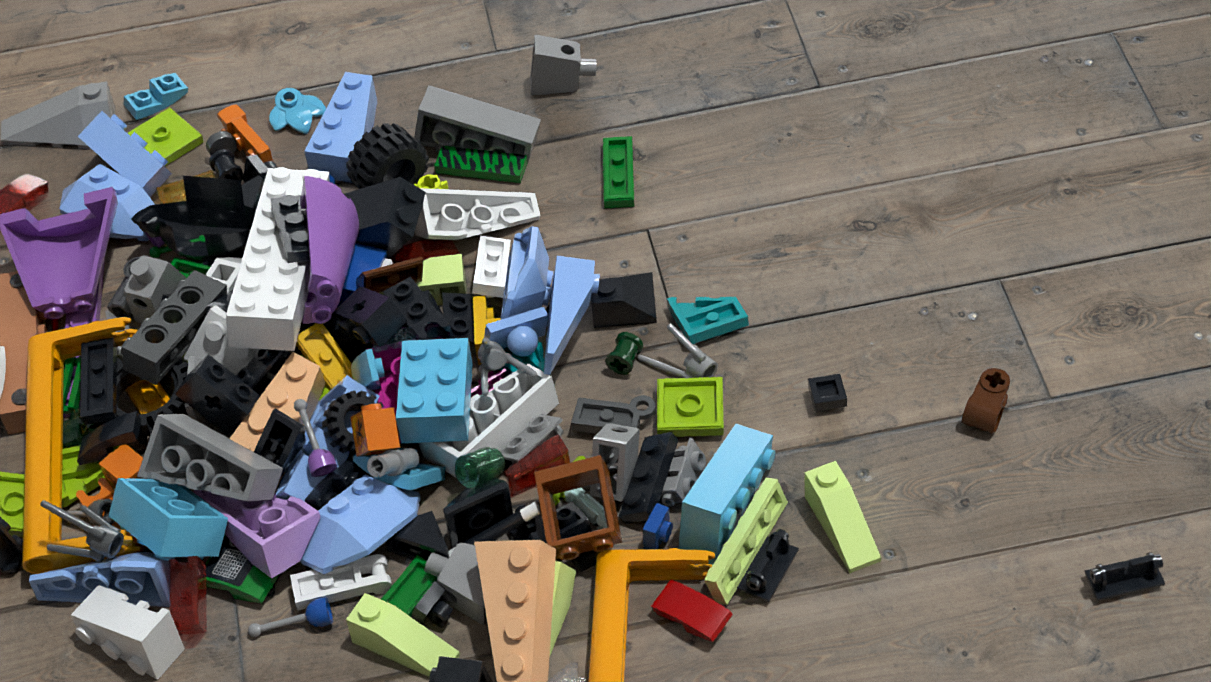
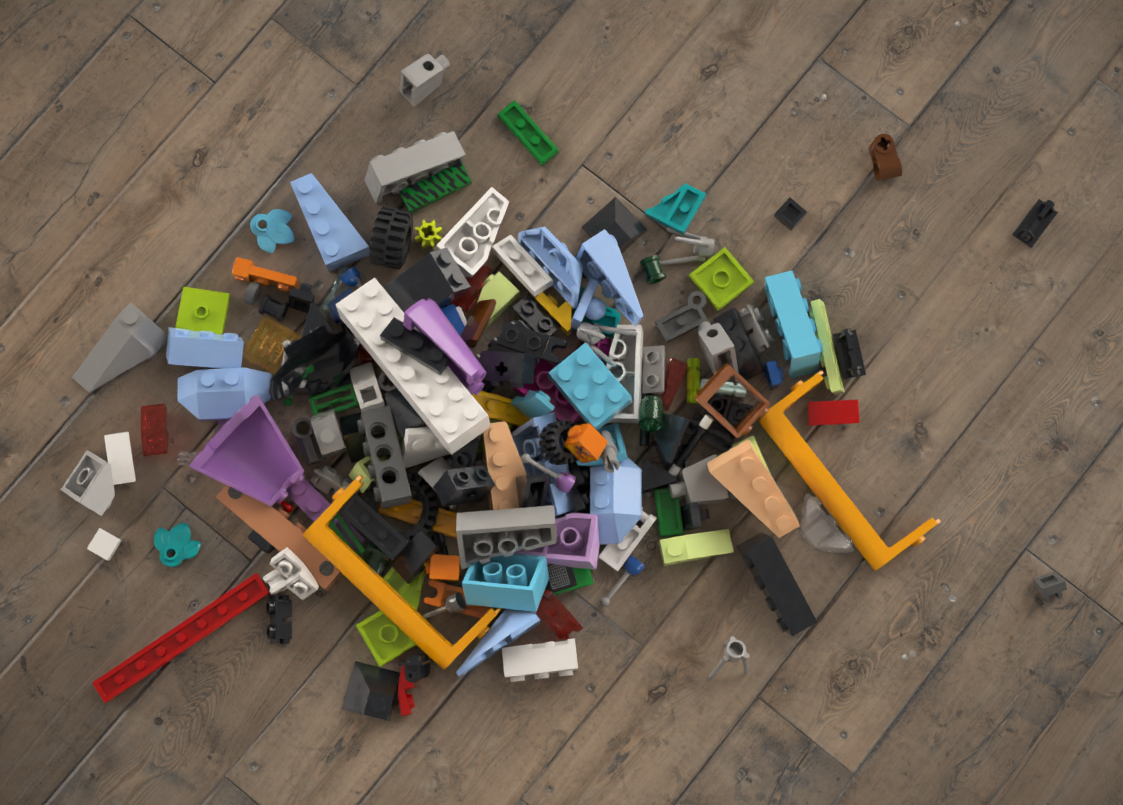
camera: 45 degrees left, 30 degrees up
(103, 540) = (490, 626): dark grey plant -> none
(161, 93) = (162, 283): medium azure slope -> none
(840, 516) = (864, 294): yellowish green slope -> none

